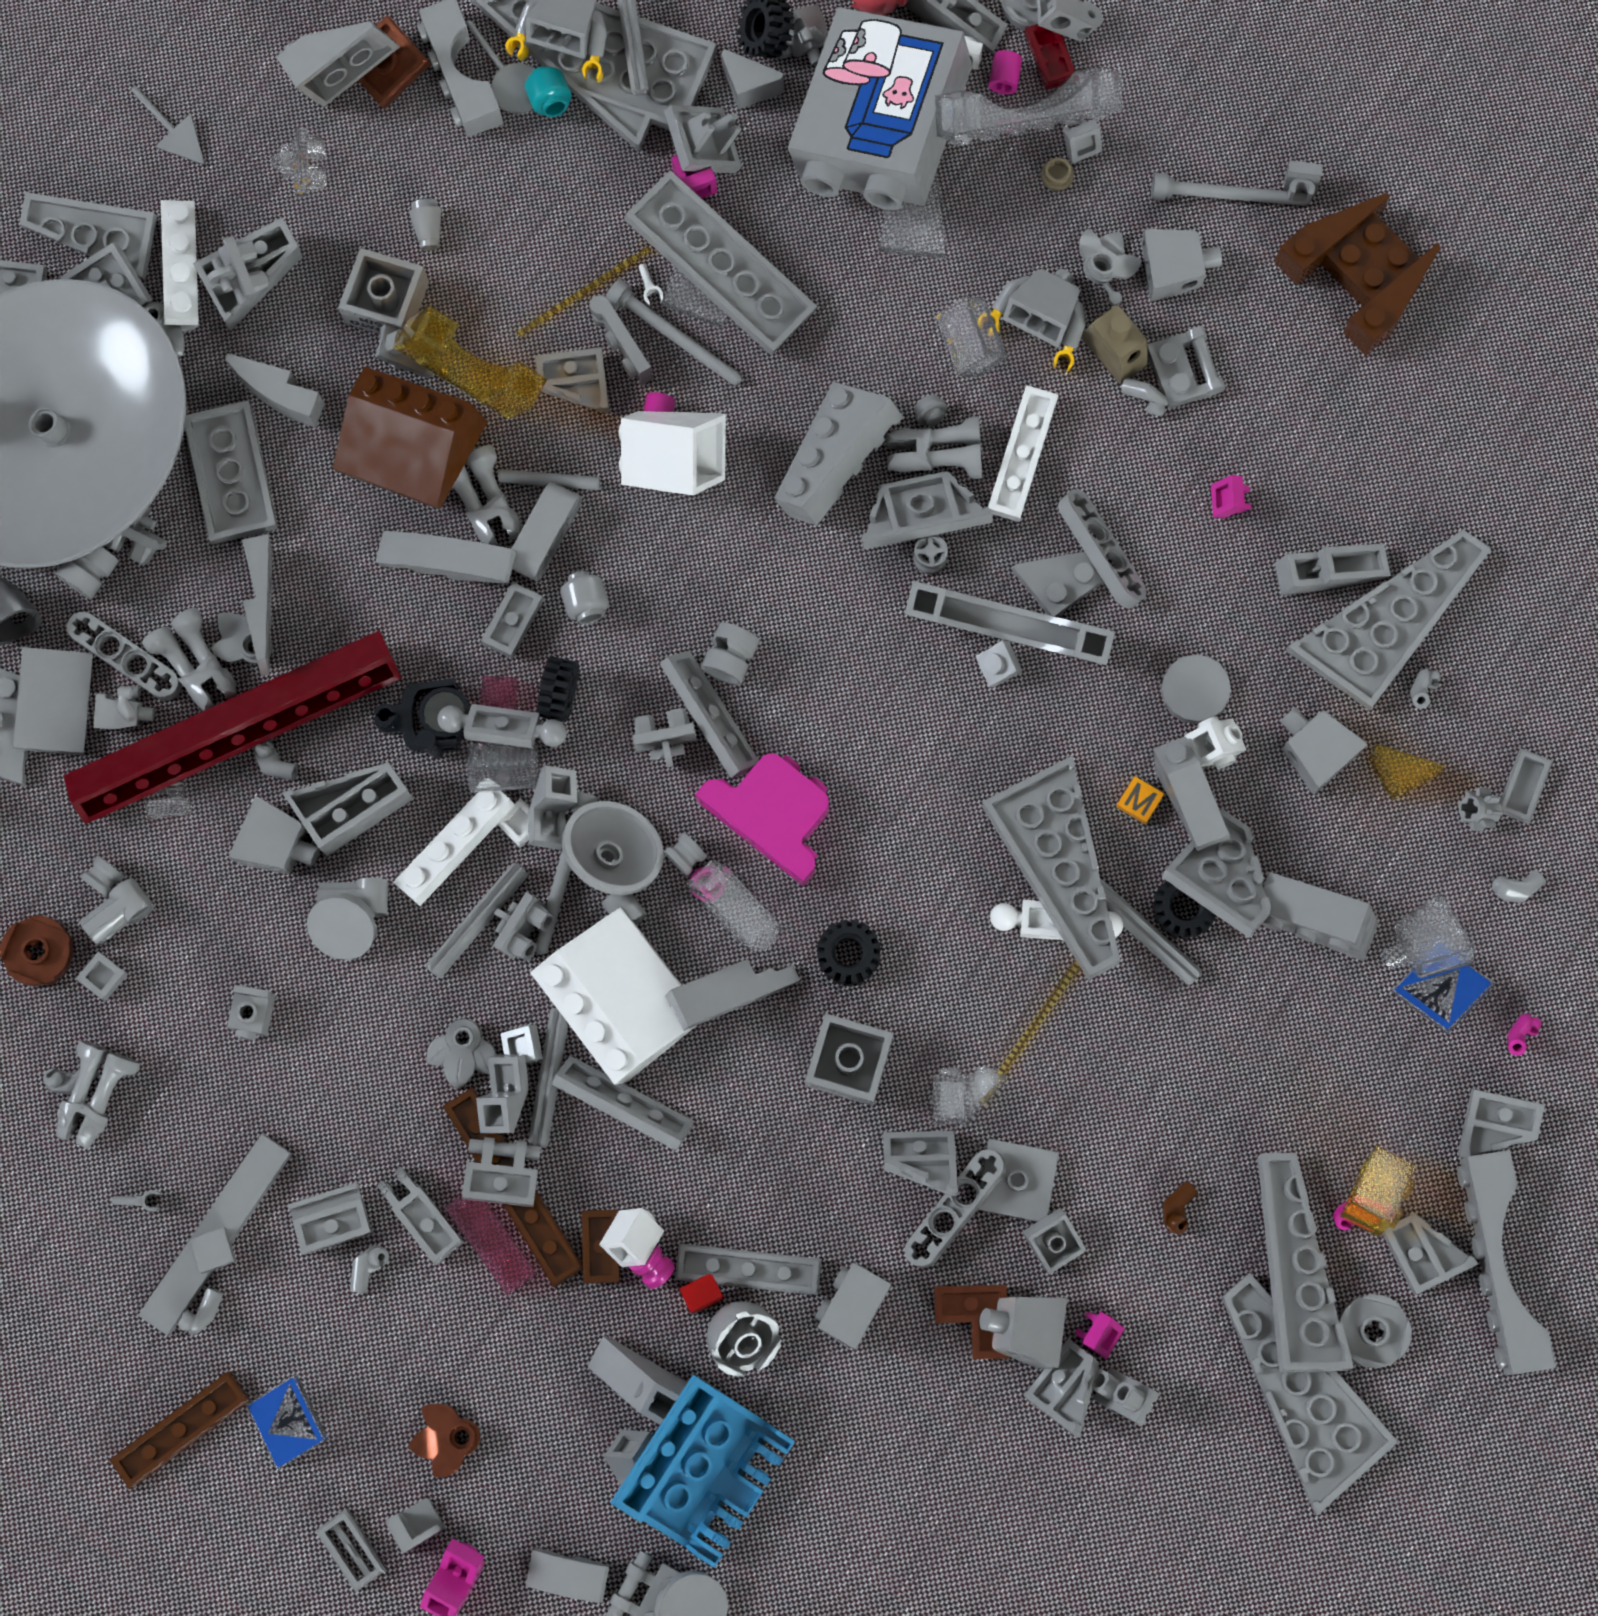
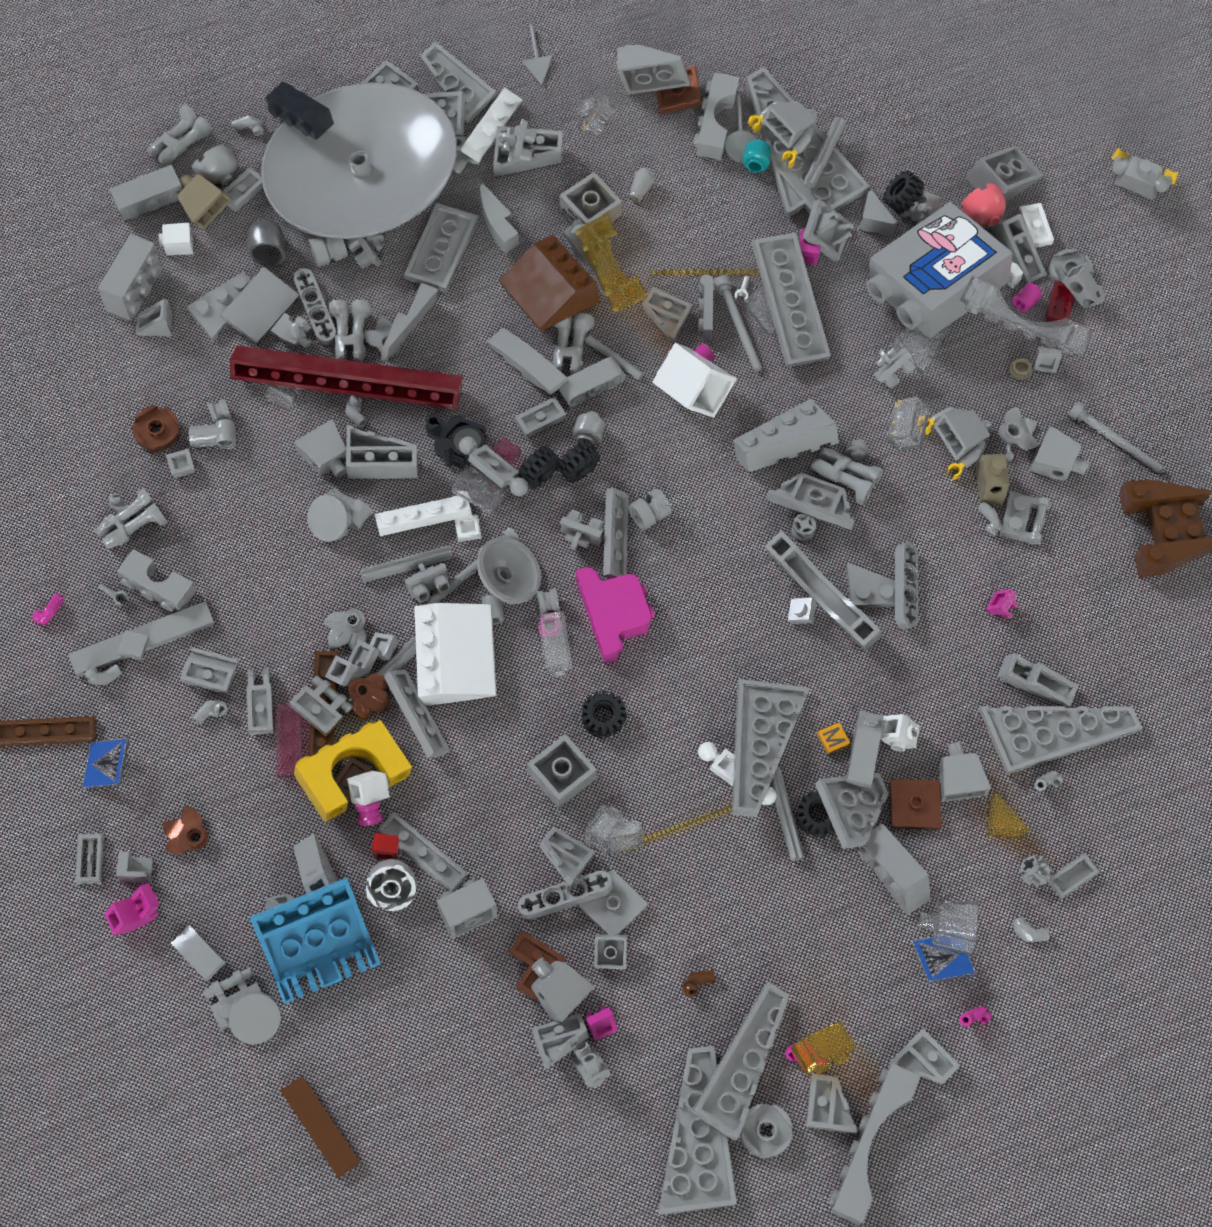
camera: 25 degrees right, 10 degrees down
(74, 1275) = (49, 611): none -> dark pink arm
(150, 1153) = (172, 593): none -> light grey arch
(258, 1024) = (250, 539): light grey brick -> none
(551, 800) = (490, 526): light grey slope -> none
(554, 1119) = (372, 697): none -> copper plate
(595, 1178) = (370, 743): none -> yellow arch
(602, 650) = (578, 461): none -> black tyre
(726, 991) = (518, 688): light grey piece -> none
(899, 270) = (886, 372): none -> light grey hips
(1022, 453) = (895, 506): white plate -> none
(1195, 688) = (909, 696): light grey tile -> none
(1287, 818) = (915, 804): none -> copper plate
(1302, 178) = (1165, 455): light grey tile -> none

